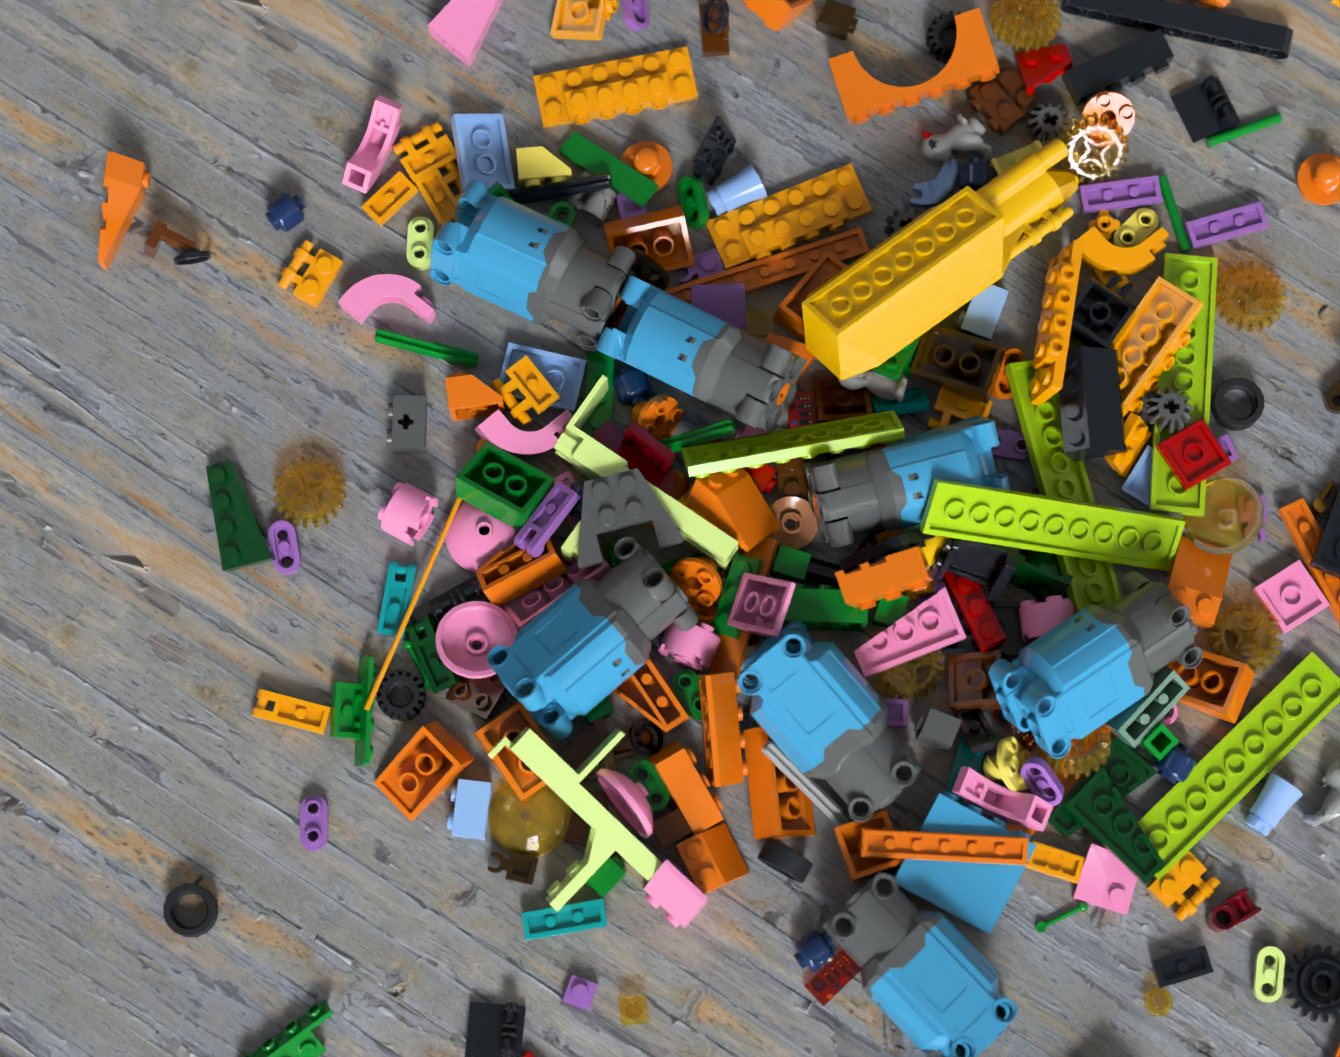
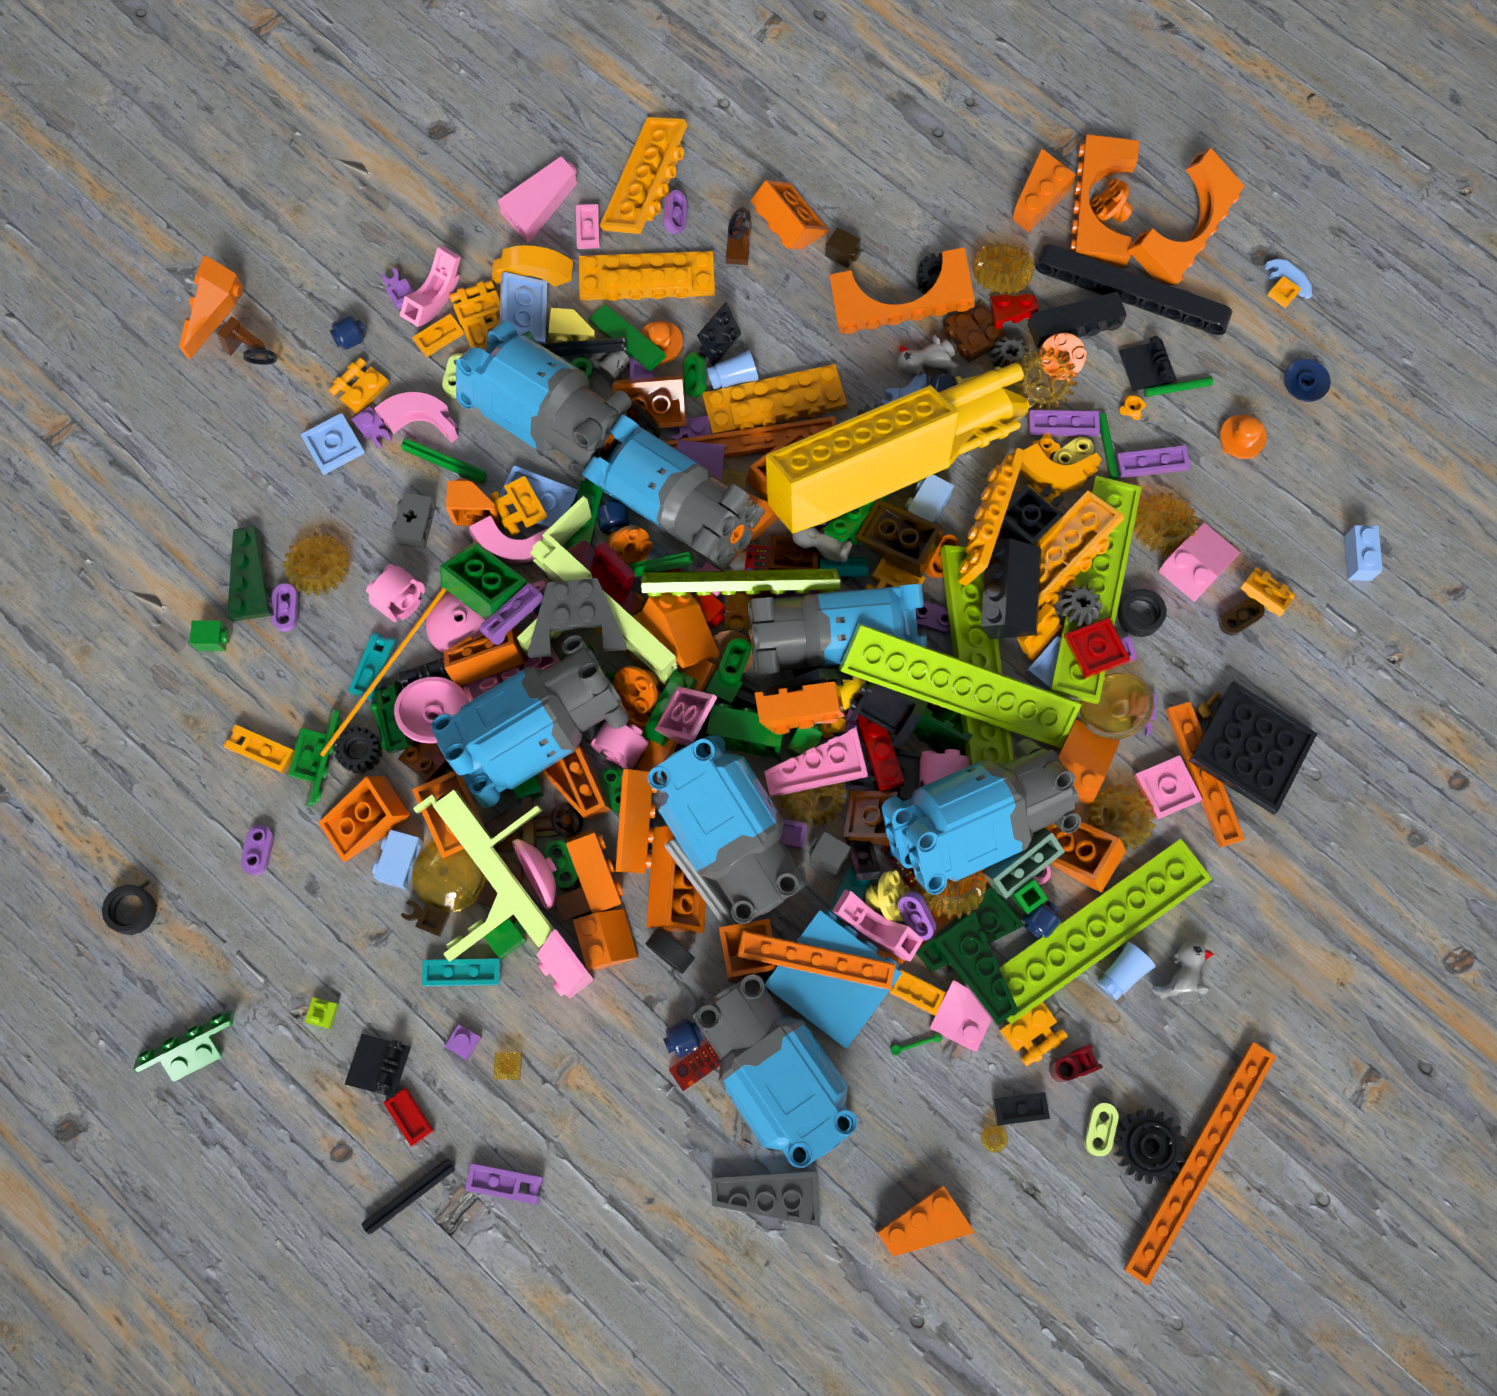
camera: 10 degrees right, 5 degrees down
(208, 593) = (209, 635): none -> green brick
(296, 348) = (332, 443): none -> light blue plate
(333, 152) = (397, 288): none -> medium lavender plate
(333, 318) = (371, 425): none -> medium lavender plate
(422, 987) = (321, 1013): none -> lime tile
(483, 95) = (534, 262): none -> light orange arch
(536, 37) = (587, 226): none -> bright pink plate
(798, 533) = (734, 662): none -> green plate
(1198, 156) = (1134, 401): none -> light orange plate
(1293, 334) = (1199, 562): none -> bright pink slope

